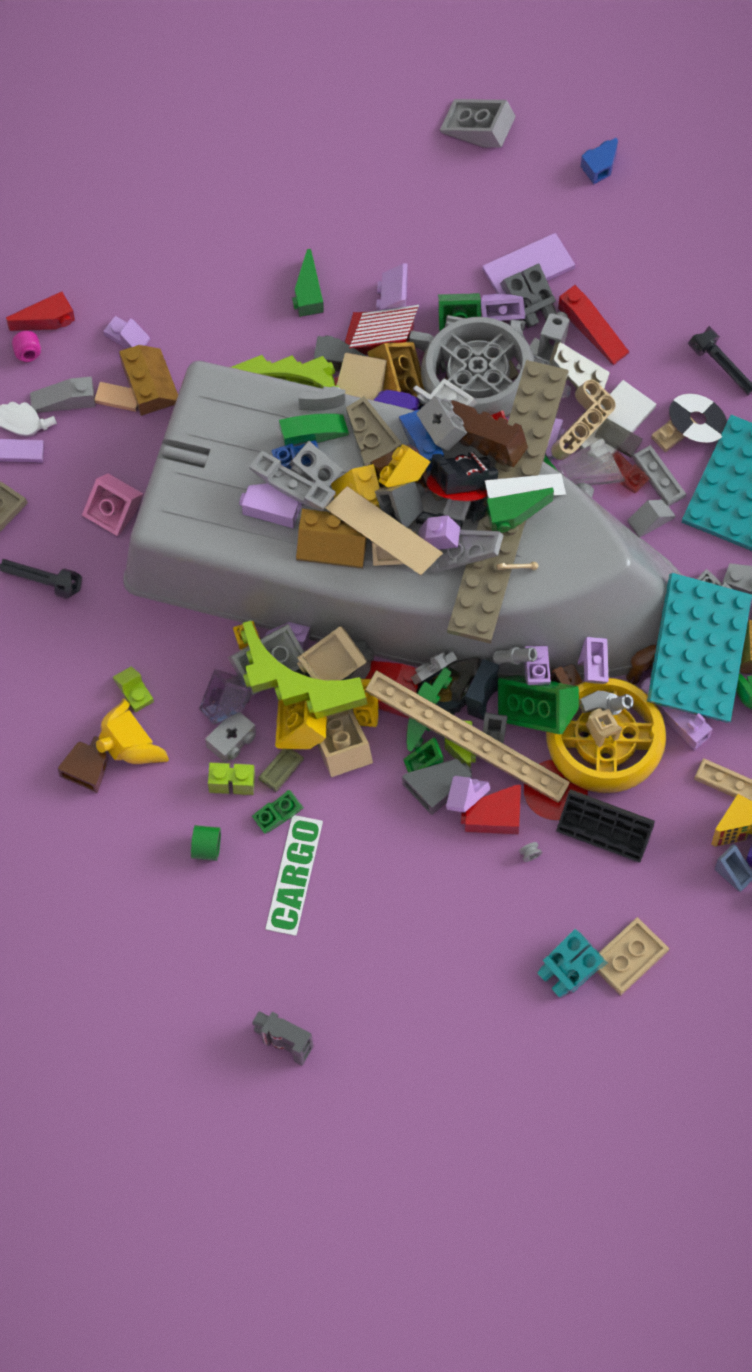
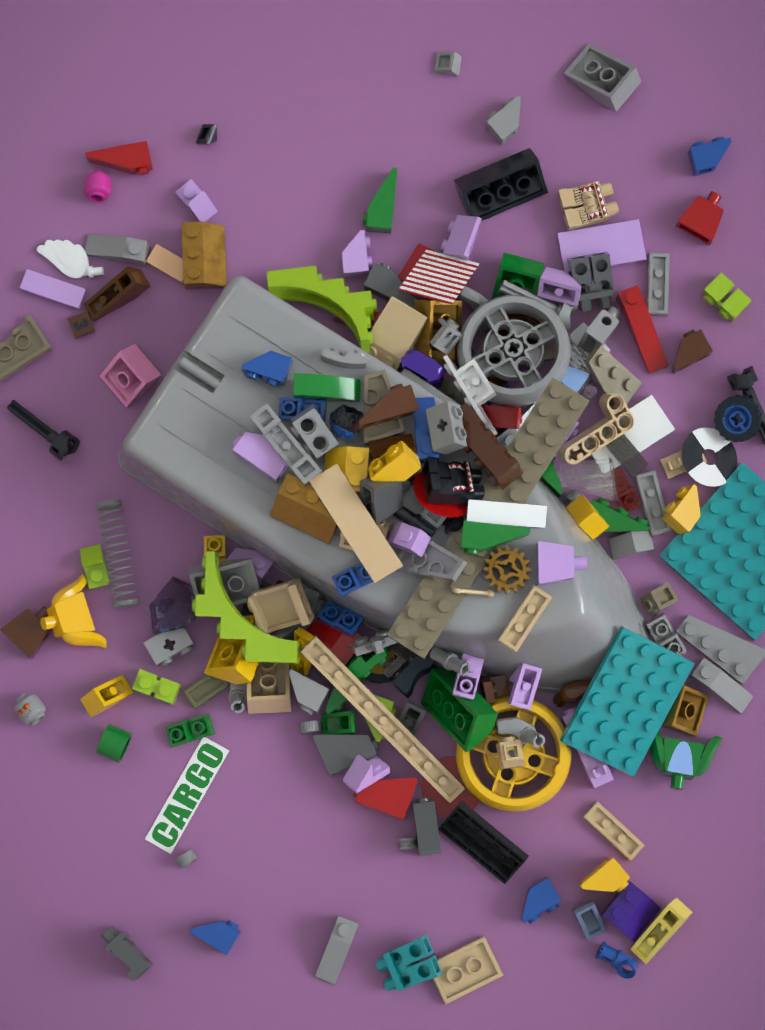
camera: 15 degrees right, 15 degrees up
(49, 474) = (81, 325): none -> reddish brown tile
(76, 434) = (119, 291): none -> reddish brown slope
(110, 836) = (30, 709): none -> light grey head
(118, 273) = (207, 134): none -> black slope
(174, 704) = (122, 603): none -> light grey piece
(182, 802) = (106, 695): none -> yellow slope
(251, 426) = (270, 367): none -> blue slope
(297, 338) = (355, 256): none -> lavender slope
(313, 760) = (237, 696): none -> light grey arm
(314, 932) = (186, 859): none -> light grey axle
(327, 151) = (448, 63): none -> light grey slope
(343, 451) = (343, 420): none -> black piece
(369, 994) = (218, 934): none -> blue slope
(383, 422) = (396, 404): none -> reddish brown slope
(384, 736) = (308, 692): none -> light grey slope
(392, 660) = (339, 618): none -> blue slope
(395, 773) = (309, 727): none -> light grey axle
(399, 185) = (505, 123): none -> light grey slope
(400, 588) = (351, 579): none -> blue slope
(410, 372) = (447, 336): none -> light grey bracket
(416, 237) = (501, 185): none -> black slope
(494, 972) = (337, 949): none -> light grey slope
(502, 233) = (586, 205): none -> tan hips
(545, 831) = (426, 827): none -> dark grey slope
(554, 537) = (517, 573): none -> pearl gold gear
(575, 579) = (524, 619): none -> tan tile
(588, 518) = (557, 563): none -> lavender torso
(593, 283) = (658, 283): none -> light grey tile
(604, 496) = (587, 517): none -> yellow slope
(614, 215) = (702, 218): none -> red torso
(621, 498) = (618, 518): none -> green slope
(647, 330) = (691, 350): none -> reddish brown slope
(653, 271) = (718, 290): none -> lime piece
(679, 864) = (538, 899): none -> blue slope
(691, 471) = (684, 511): none -> yellow slope
(696, 557) = (659, 599): none -> dark tan bracket
(713, 375) = (738, 418): none -> black wheel

